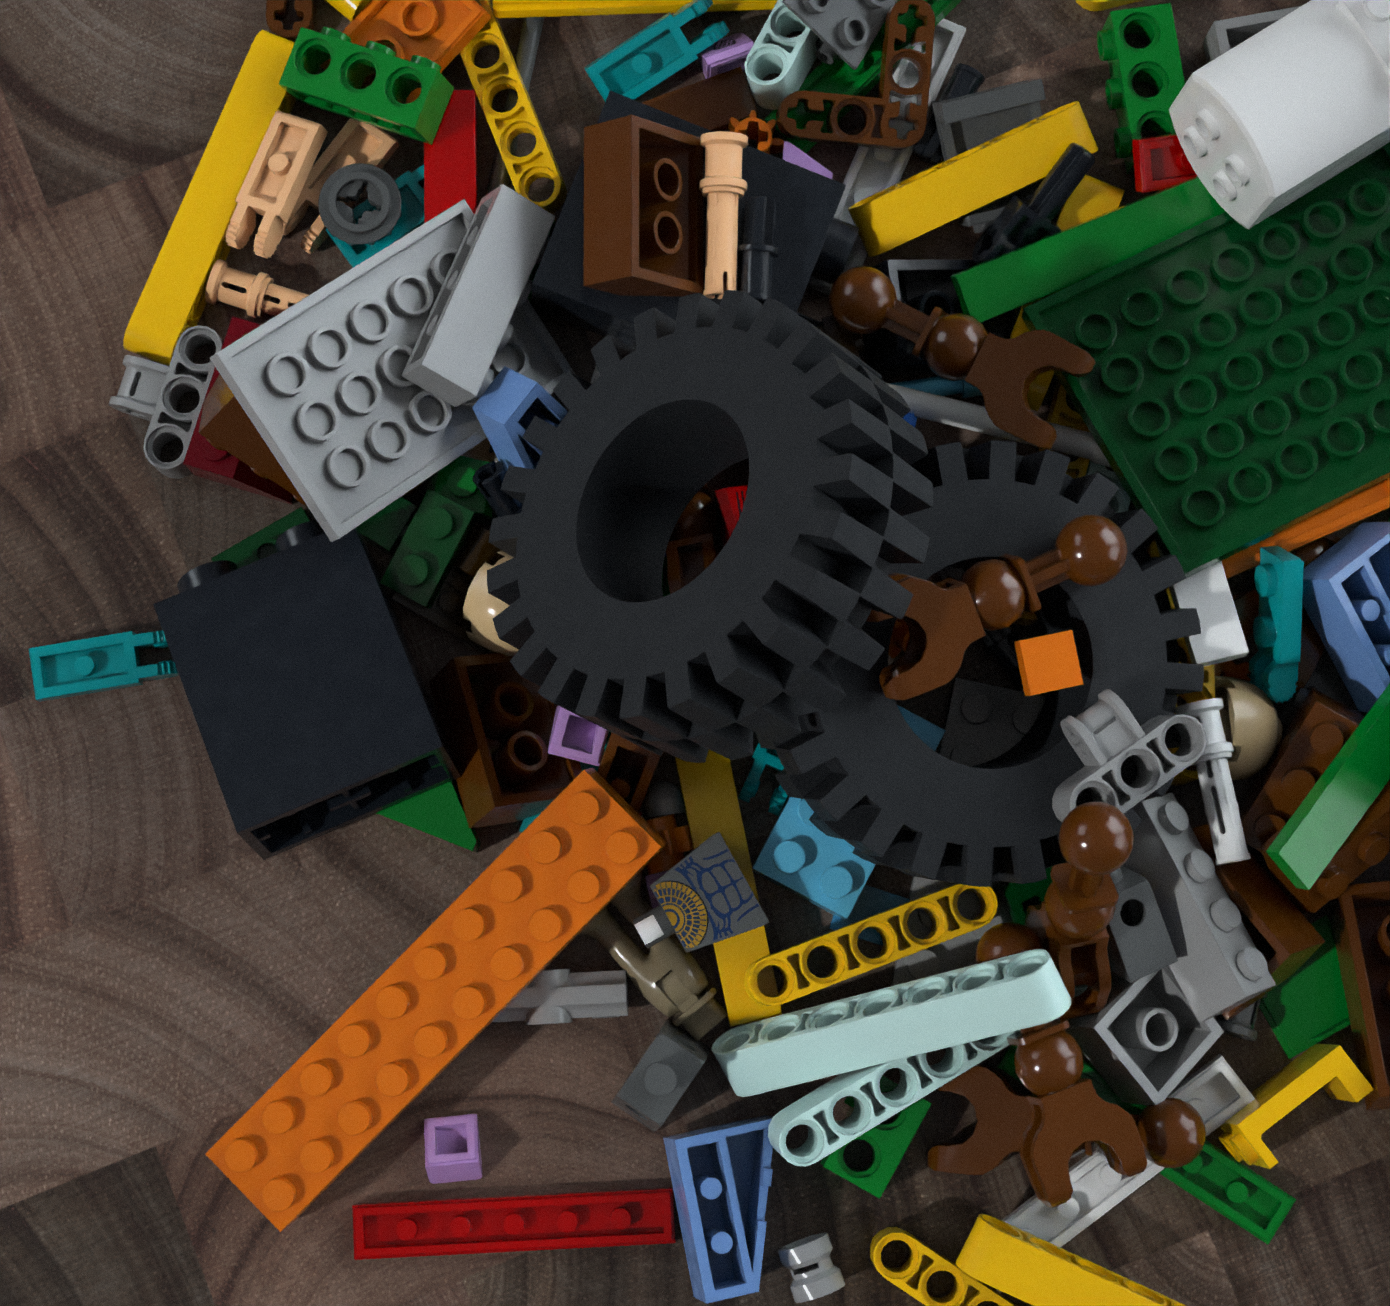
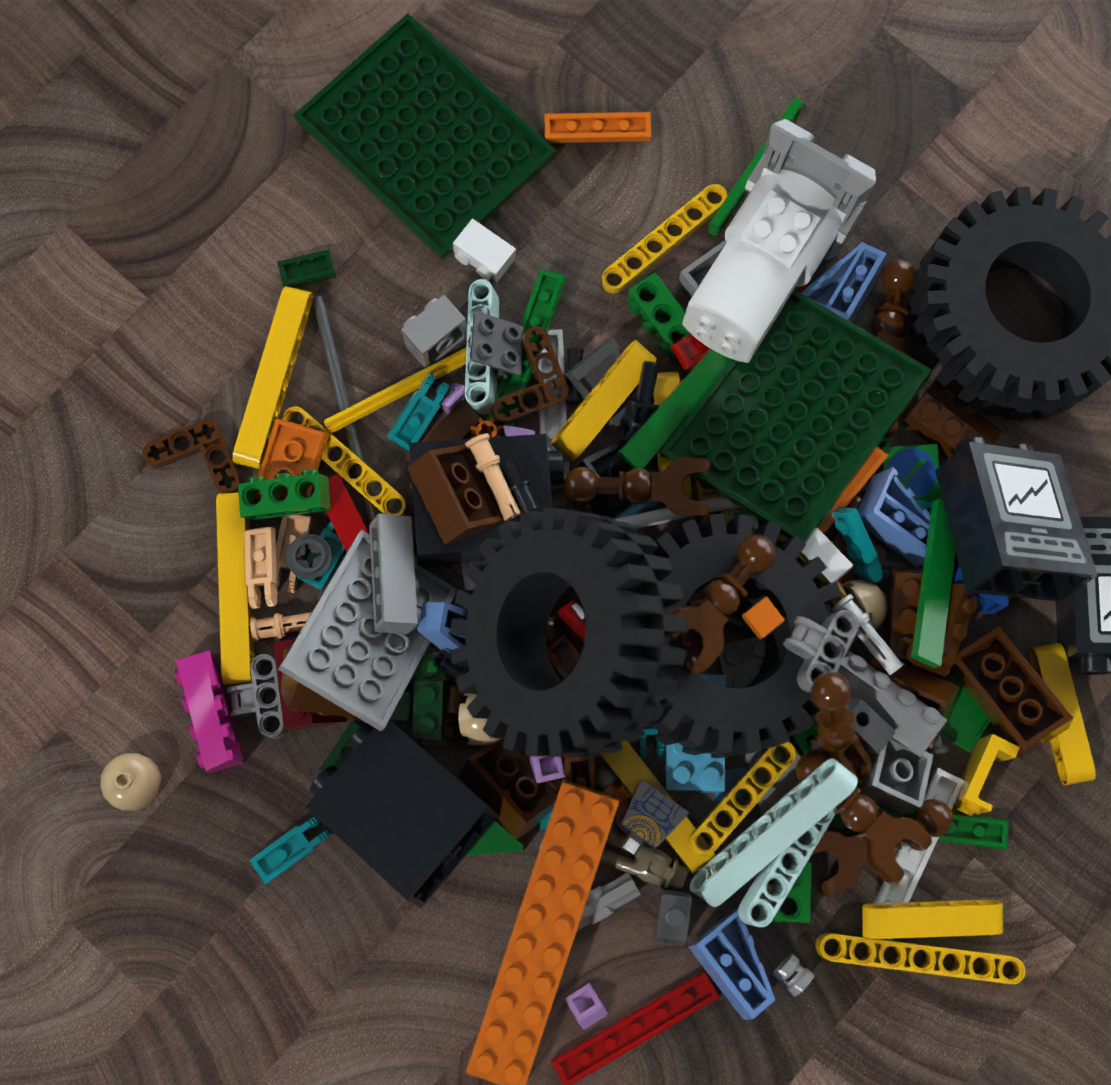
camera: 25 degrees left, 5 degrees down
(79, 379) = (209, 712): none -> dark pink wedge

